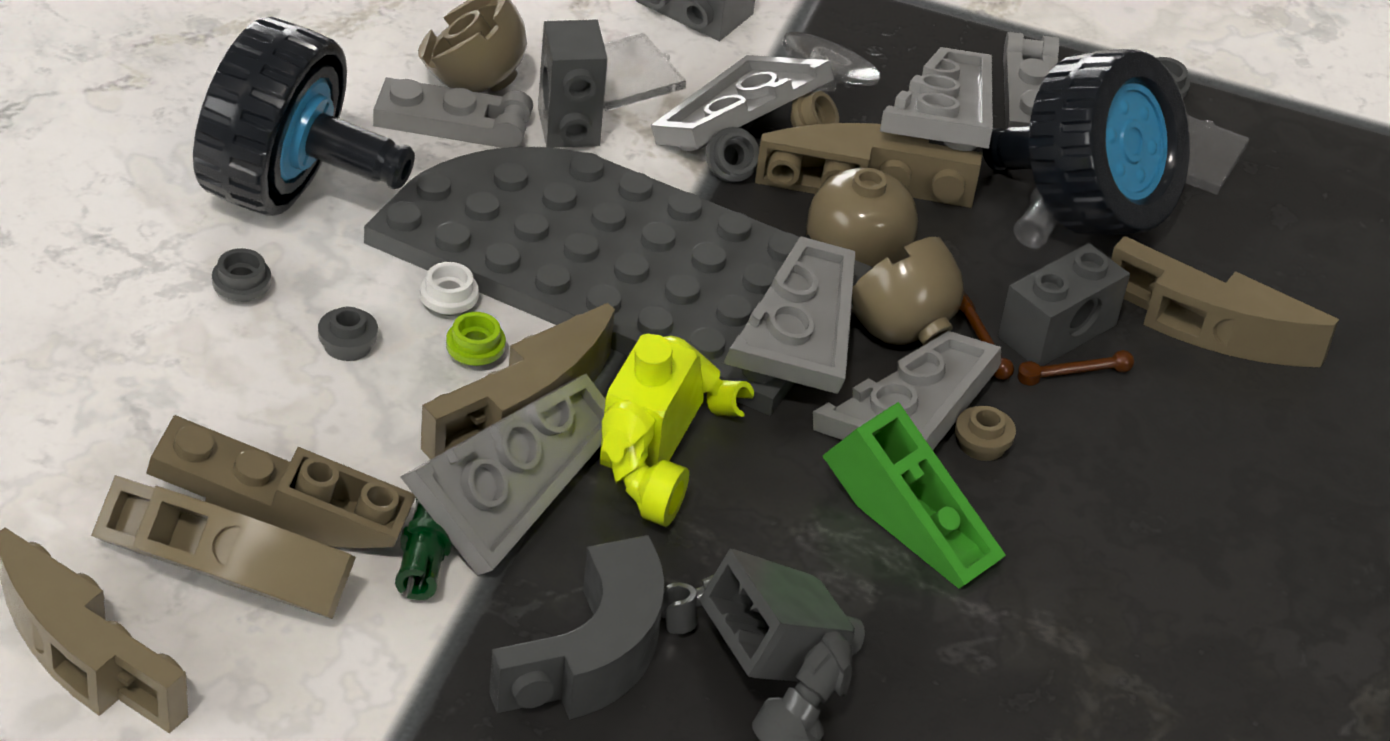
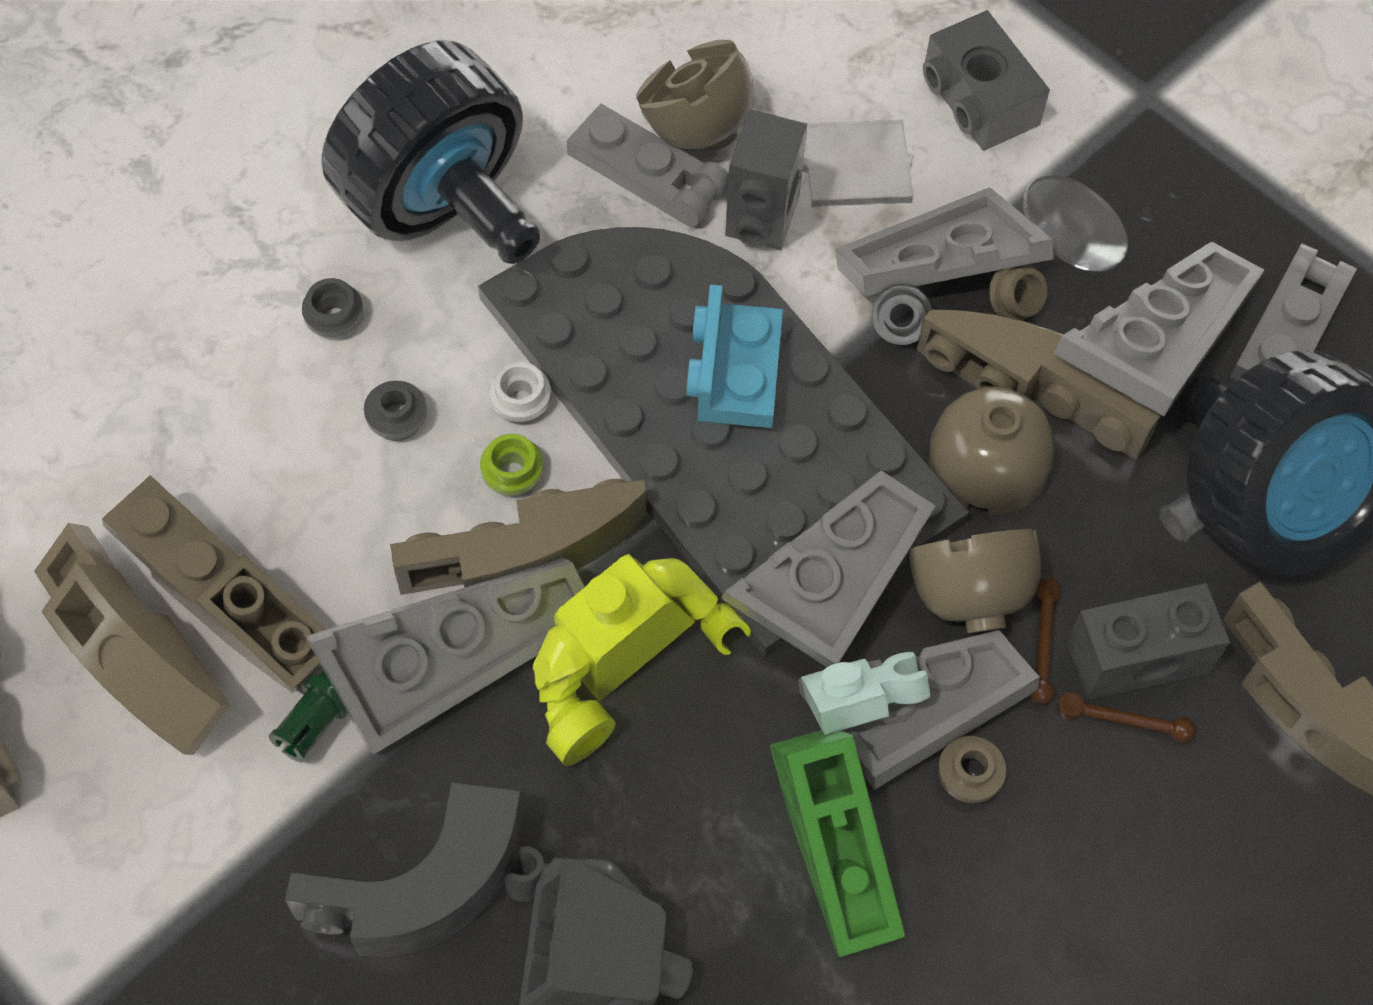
camera: 30 degrees right, 20 degrees up
(627, 209) = (737, 363): none -> medium azure bracket
(870, 392) = (858, 694): none -> light aqua plate

